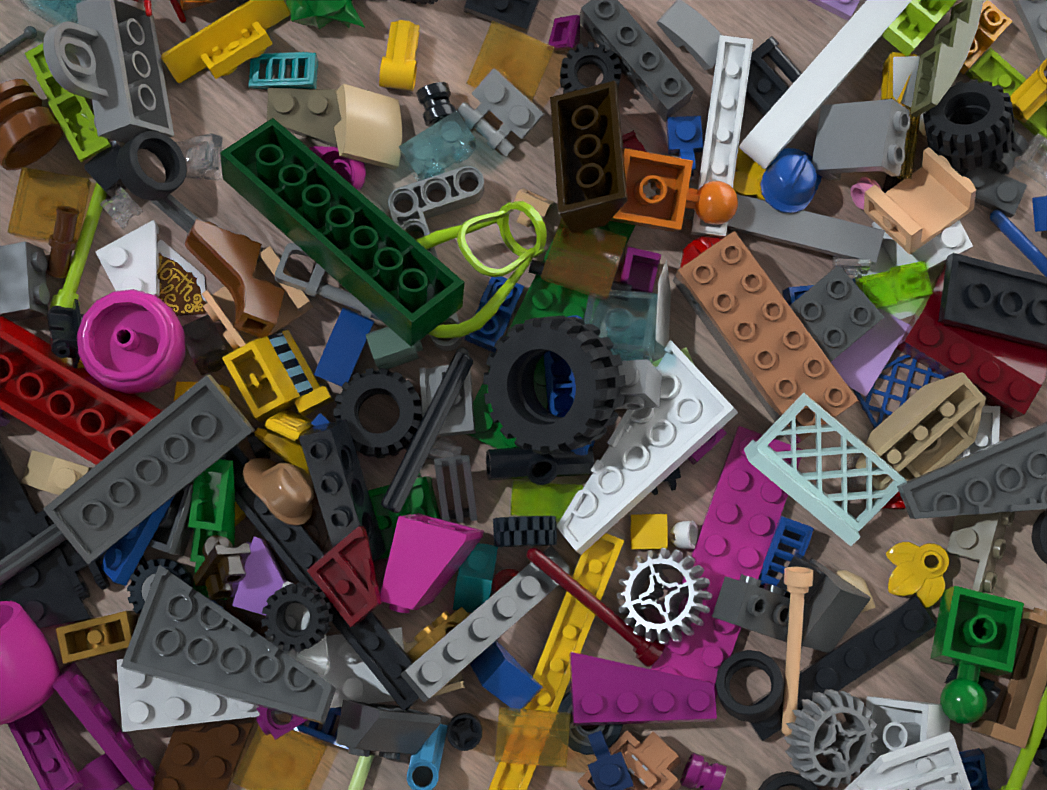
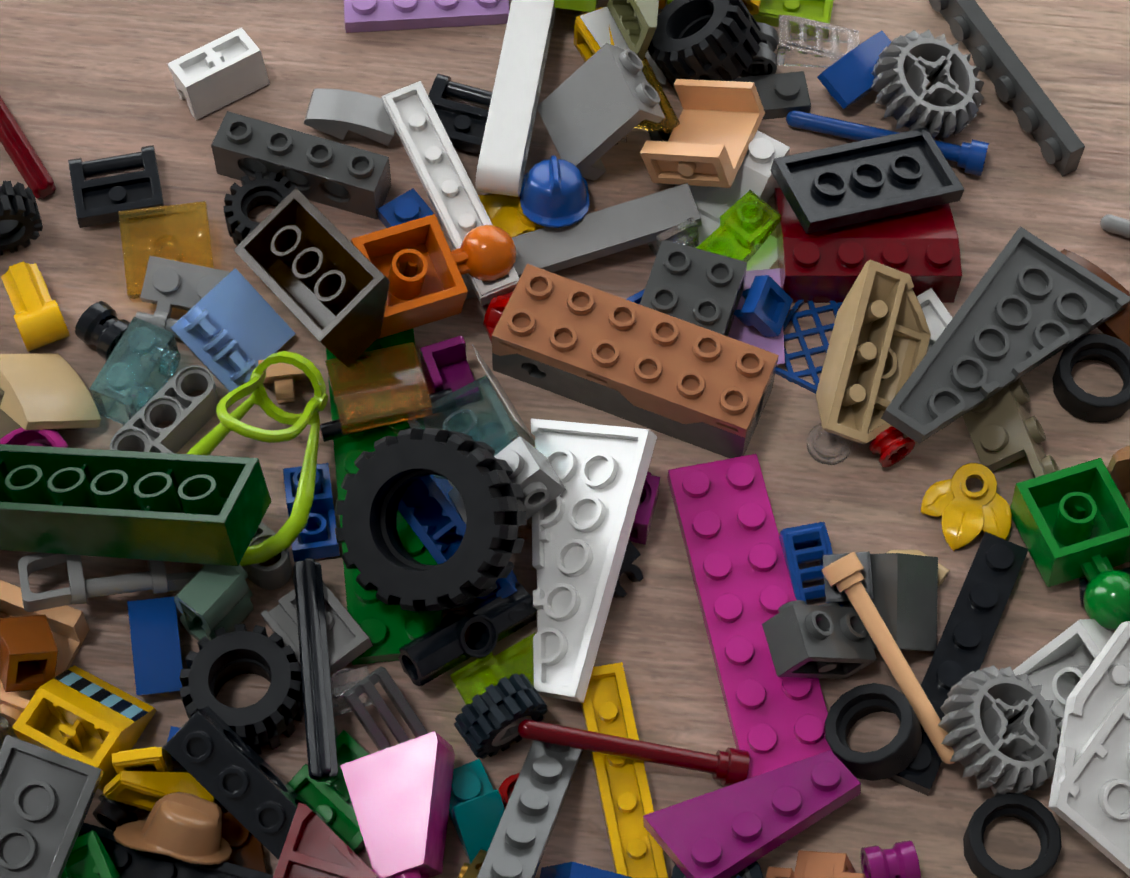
camera: 30 degrees left, 20 degrees down
(314, 400) = (155, 722): yellow tile -> none
(517, 154) = (232, 330): none -> light blue hinge
(565, 32) = (209, 185): magenta slope -> none
(649, 531) = (645, 640): yellow slope -> none
(650, 599) = (732, 655): light grey gear -> none
(685, 534) = (688, 618): white hinge -> none
(806, 492) = (784, 484): light aqua fence -> none
(858, 190) = (636, 171): bright pink plate -> none
(878, 351) = (765, 306): none -> blue tile

